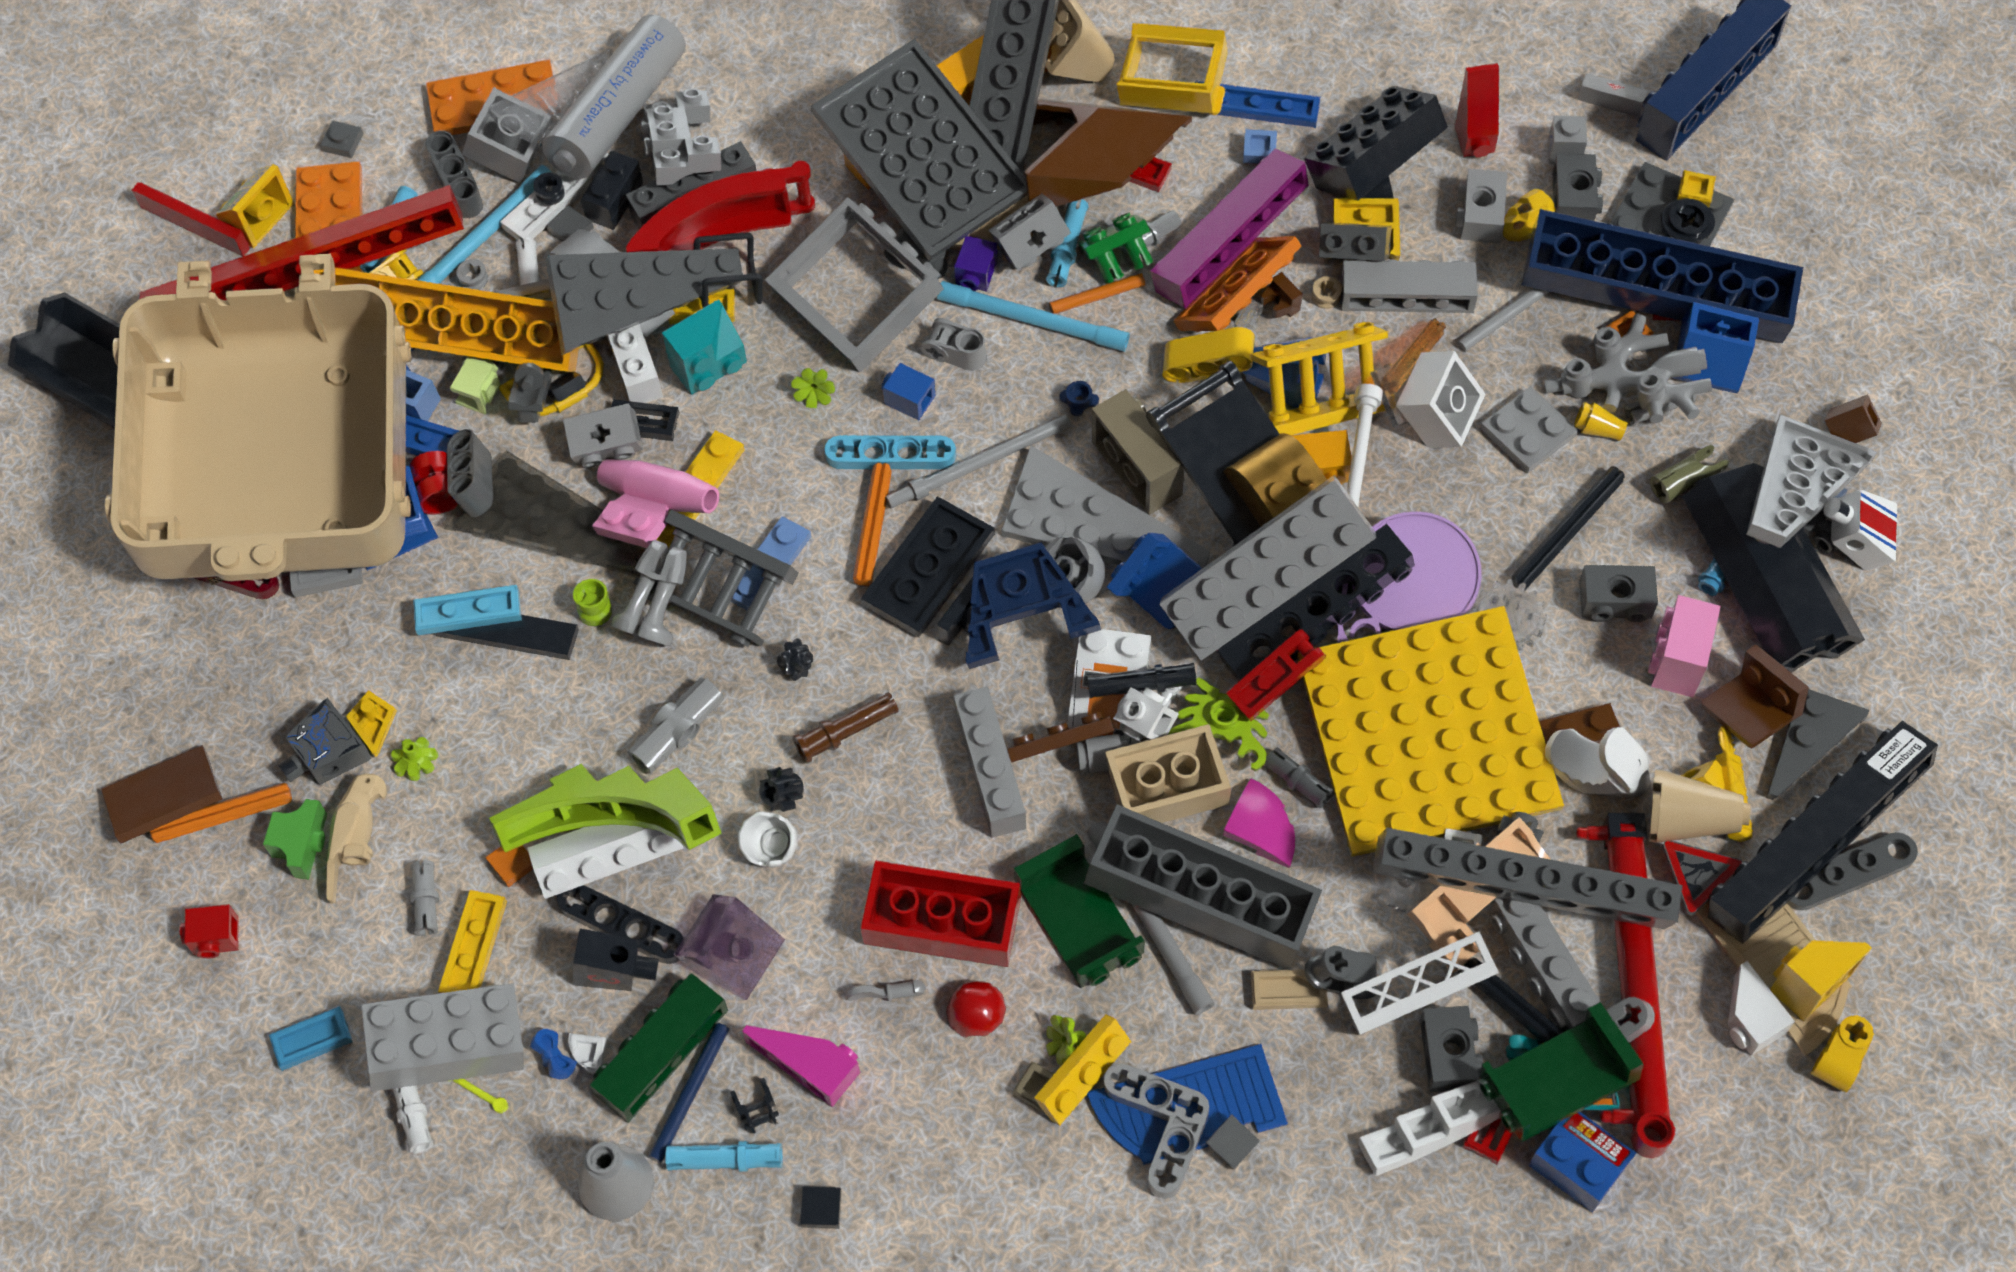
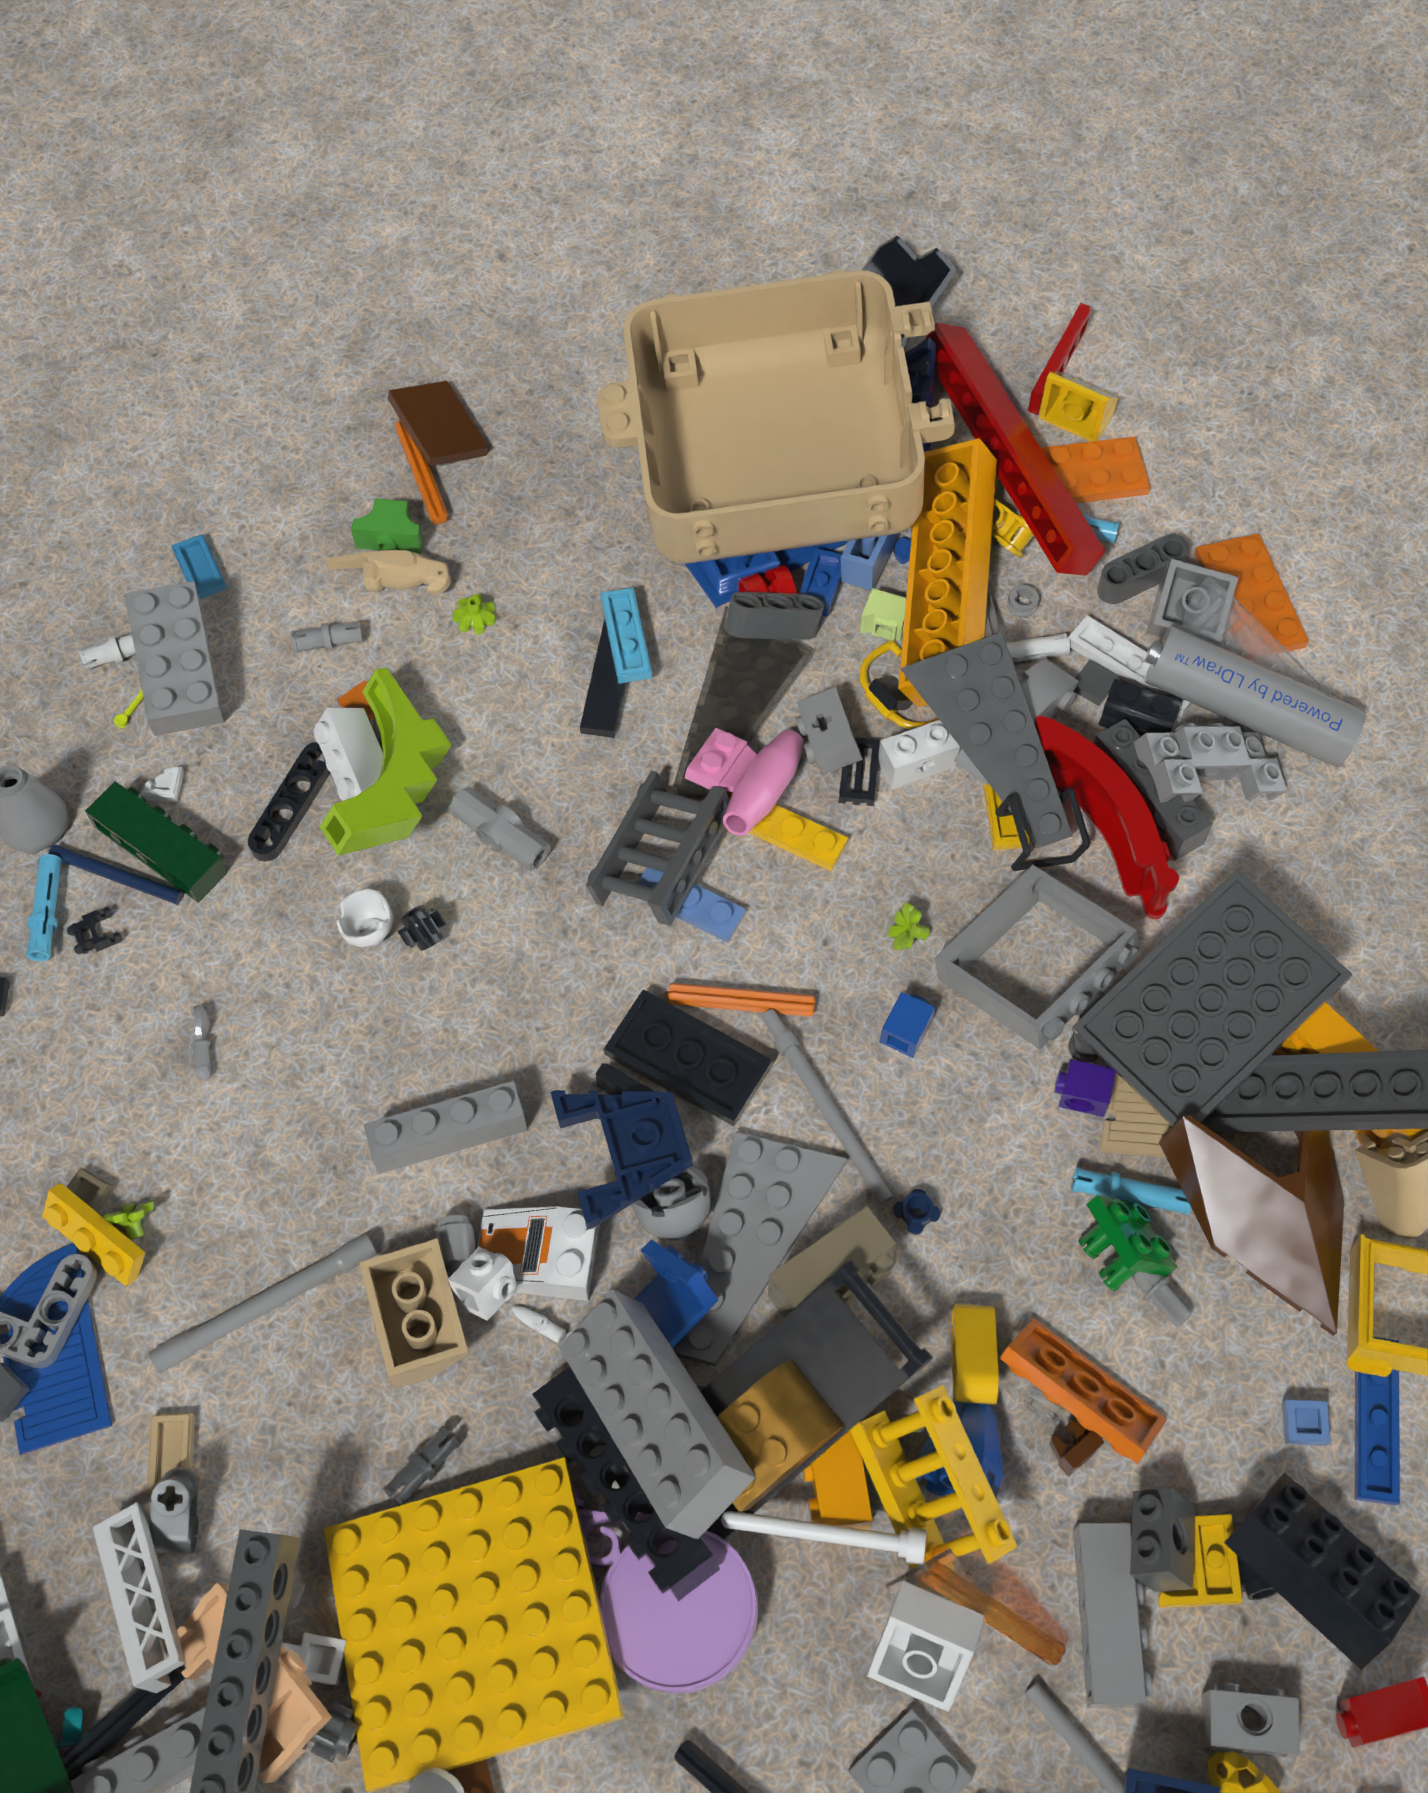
camera: 85 degrees right, 0 degrees up
(210, 930) = (301, 477): red brick -> none
(323, 746) = (484, 537): dark grey torso -> none
(341, 139) = (1178, 471): dark grey plate -> none
(372, 720) = (511, 574): yellow piece -> none
(473, 942) = (274, 679): yellow plate -> none
(482, 231) = (1015, 567): medium azure piece -> none
(529, 391) = (872, 657): dark grey hips -> none
(545, 180) = (1135, 644): black bush -> none
(546, 1044) = (172, 748): blue piece -> none
(592, 602) = (636, 741): lime wheel -> none
(610, 961) = (240, 786): black torso -> none
(668, 572) = (657, 790): light grey piece -> none
(704, 348) = (938, 812): teal slope -> none
(729, 945) = (255, 893): clear purple slope -> none
(795, 659) = (572, 933): black plant -> none
(811, 1061) = (127, 975): dark pink slope -> none
(830, 734) = (486, 971): reddish brown pin -> none
(890, 446) = (828, 1013): medium azure beam -> none
(941, 913) = (270, 1085): red brick -> none
(951, 343) = (974, 1067): light grey piece -> none
(976, 1009) = (174, 1129): red hair -> none
(1014, 232) = (1126, 1138): light grey brick -> none
(1060, 736) = (469, 1197): reddish brown plate -> none
(1077, 916) = (270, 1231): dark green panel -> none
(1097, 293) = (1065, 1229): orange bar -> none
(1100, 334) = (1005, 1233): medium azure piece -> none
(1152, 175) = (1247, 1292): red tile -> none
(1156, 678) = (530, 1321): black pin -> none
(1203, 886) = (274, 1350): dark grey brick -> none
(1225, 721) = (494, 1380): lime animal -> none
(1229, 228) = (1174, 1384): magenta brick -> none
(1262, 824) = (368, 1425): dark pink brick -> none
(1275, 675) = (527, 1427): red plate -> none
(1324, 283) = (1089, 1496): tan bush -> none
(1450, 1026) = (49, 1635): dark grey brick -> none

